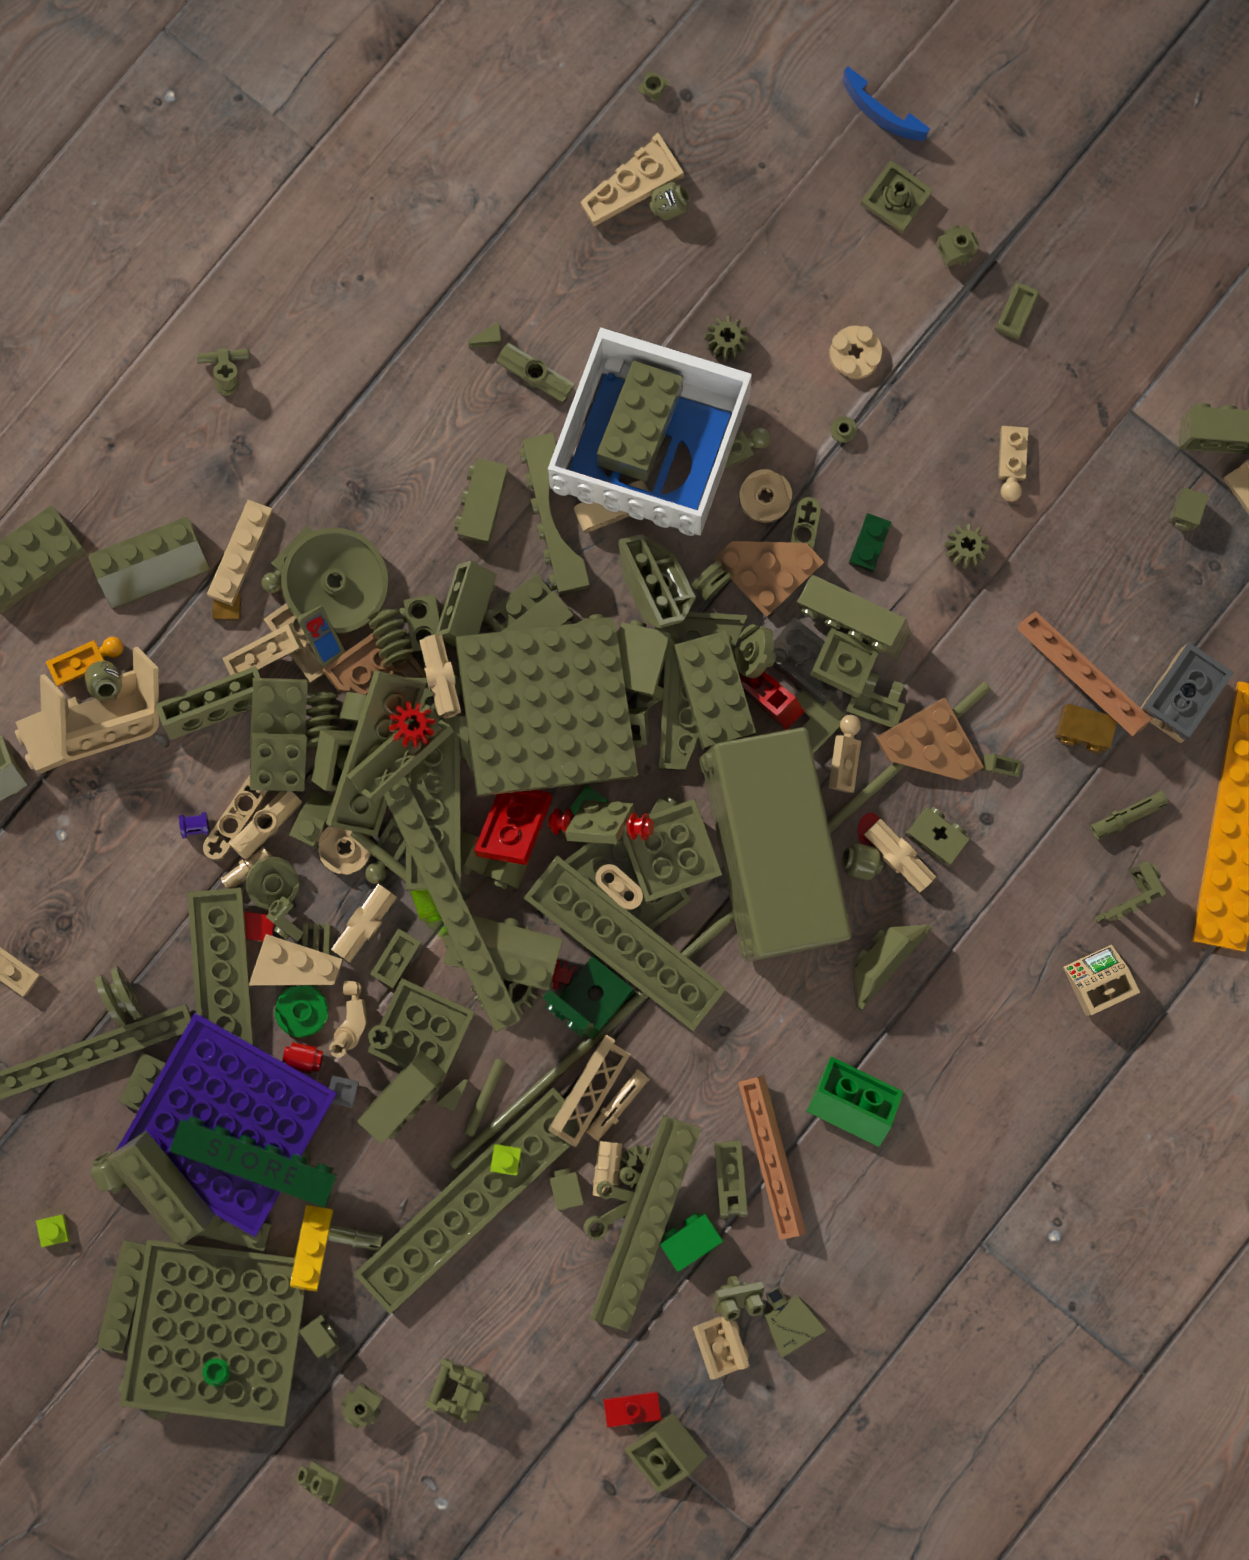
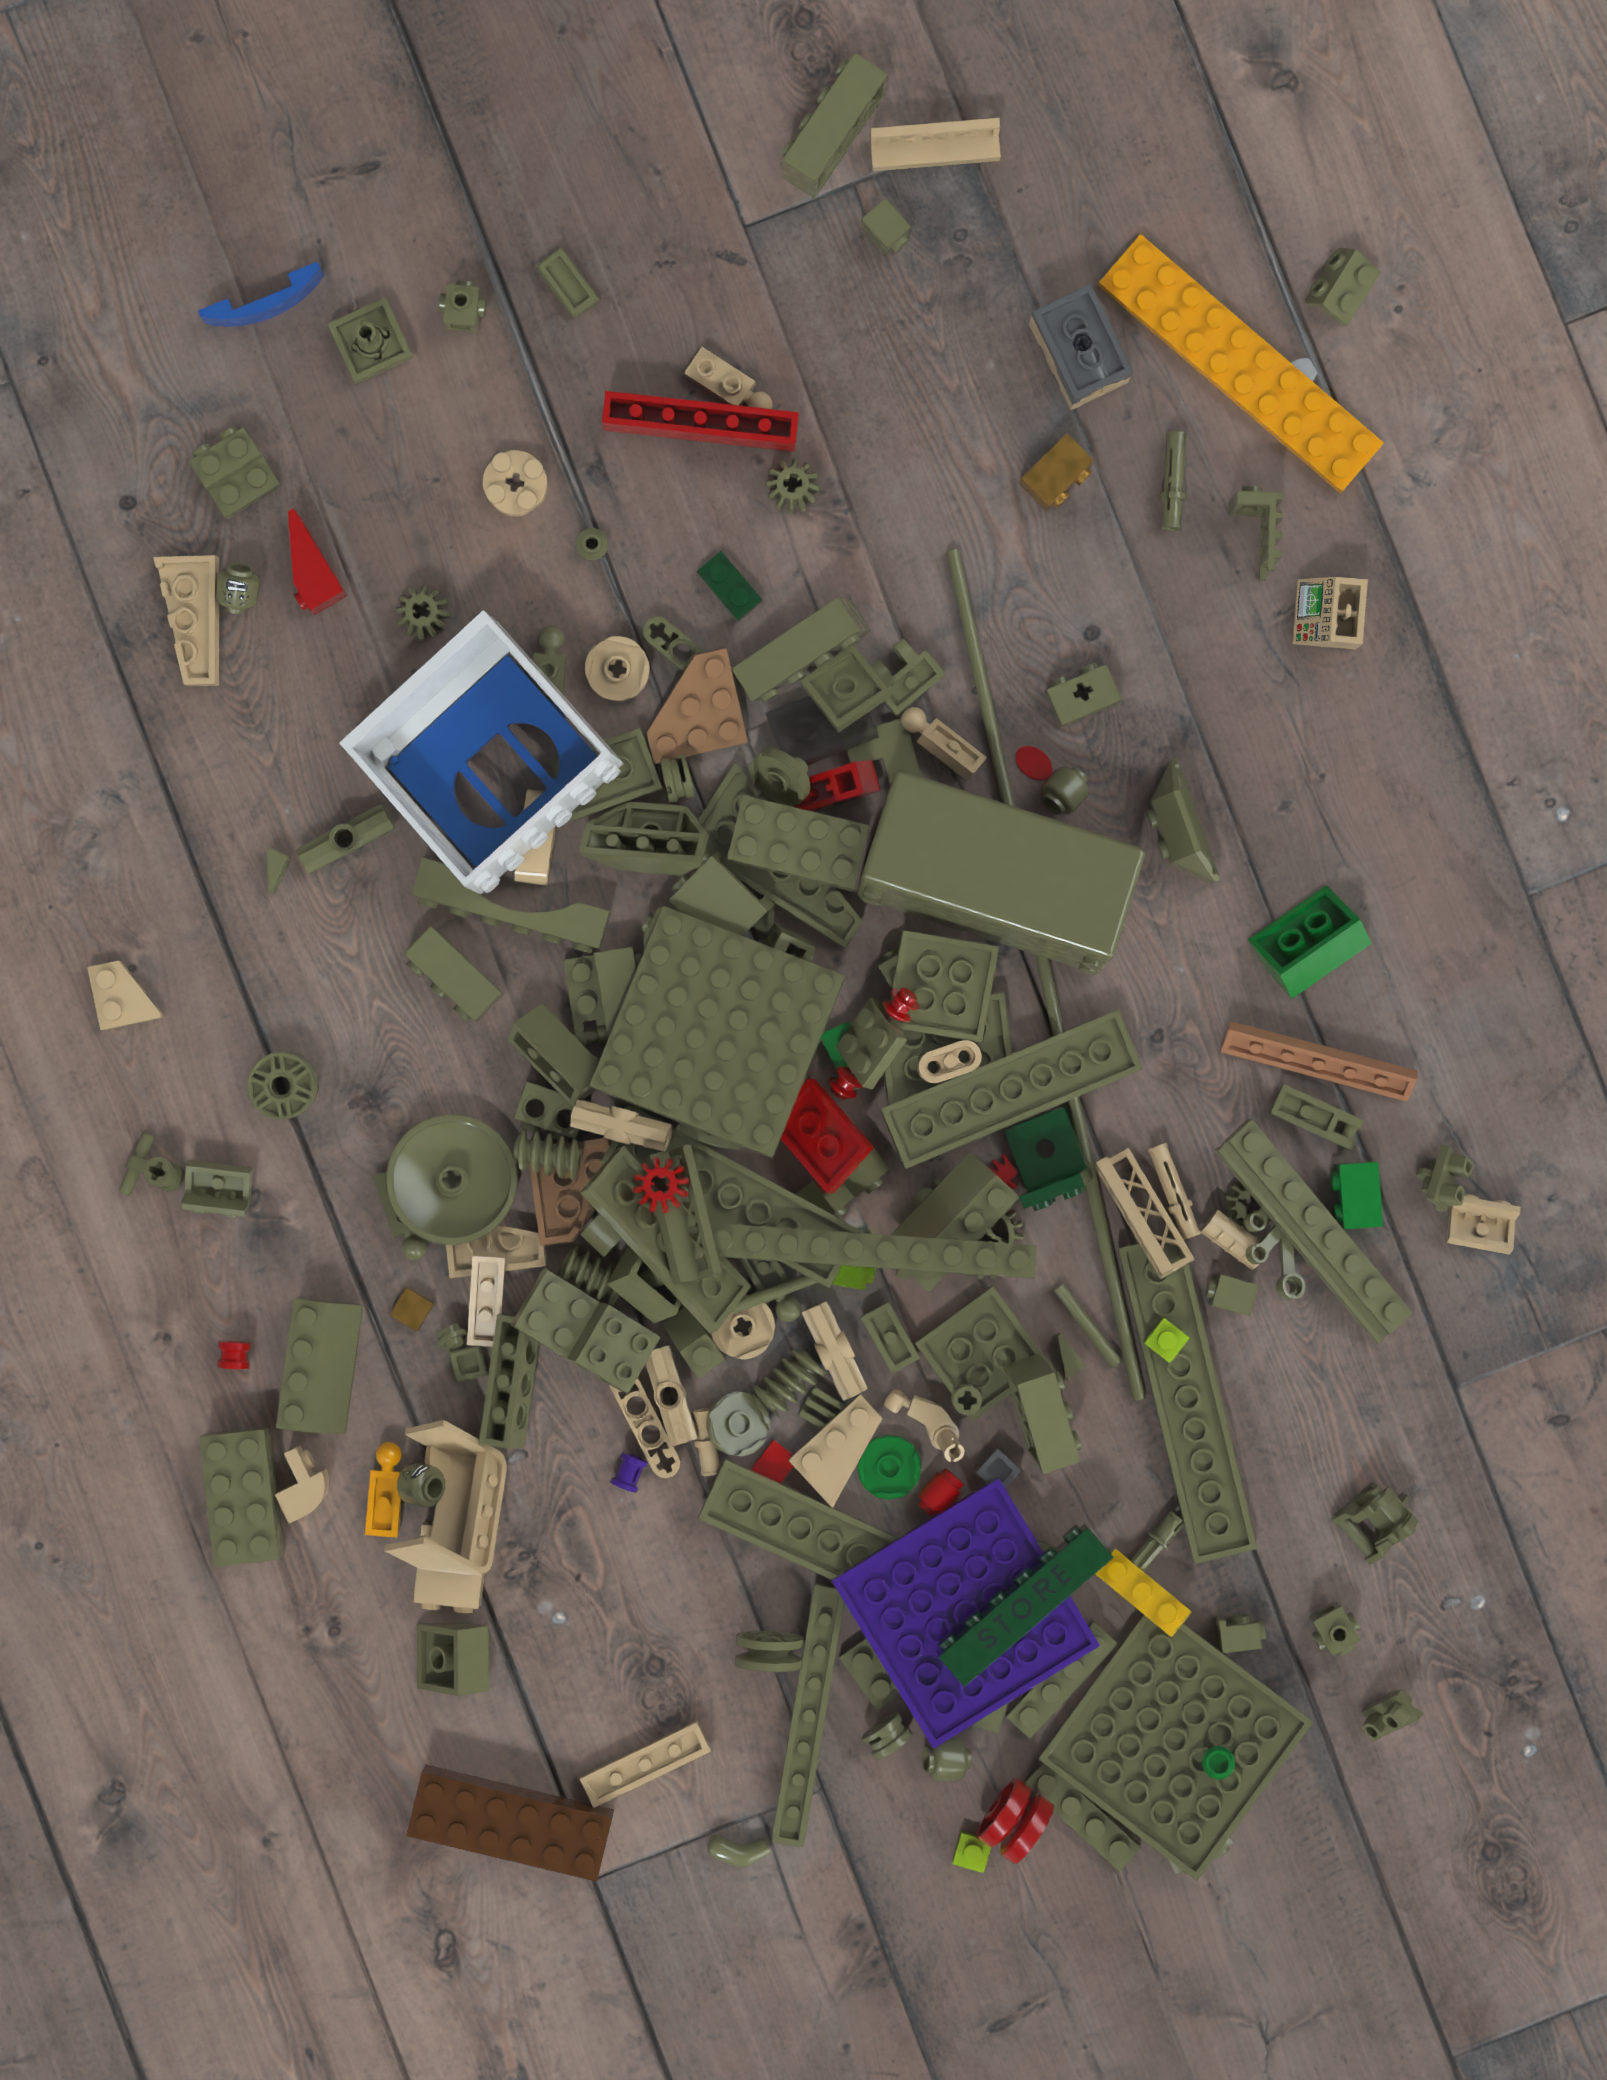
camera: 60 degrees left, 5 degrees up
(56, 605) = (309, 1490): none -> tan brick
(92, 1243) = (1015, 1821): none -> red wheel
(103, 1118) = (887, 1736): none -> olive wheel
(124, 498) = (233, 1354): none -> red wheel
(161, 1188) = (996, 1715): olive slope -> none
(209, 667) = (468, 1363): none -> olive tile
(221, 644) = (451, 1337): none -> olive plate
(236, 421) = (217, 1188): none -> olive bracket
(240, 552) = (362, 1263): tan plate -> none
(277, 915) = (775, 1437): olive bracket -> none
(321, 635) = (504, 1227): slope -> none
(323, 902) = (789, 1381): none -> olive piece
(330, 411) = (263, 1091): none -> olive wheel
(334, 280) = (119, 997): none -> tan wing
(632, 1409) = (1493, 1352): red plate -> none
(640, 421) = (463, 757): olive brick -> none
(650, 79) = (90, 528): olive plate -> none
(666, 1453) = (1558, 1342): olive slope -> none
(693, 550) = (634, 781): none -> olive plate
(710, 245) = (312, 575): none -> red slope
(750, 154) = (234, 471): none -> olive plate
(790, 1322) = (1498, 1138): olive torso -> none
(900, 855) = (1080, 747): tan piece -> none
(931, 743) = (981, 645): medium nougat plate -> none
(974, 455) = (700, 421): none -> red brick
(1001, 765) = (1044, 585): olive piece -> none
(1084, 673) = (1000, 441): nougat plate -> none

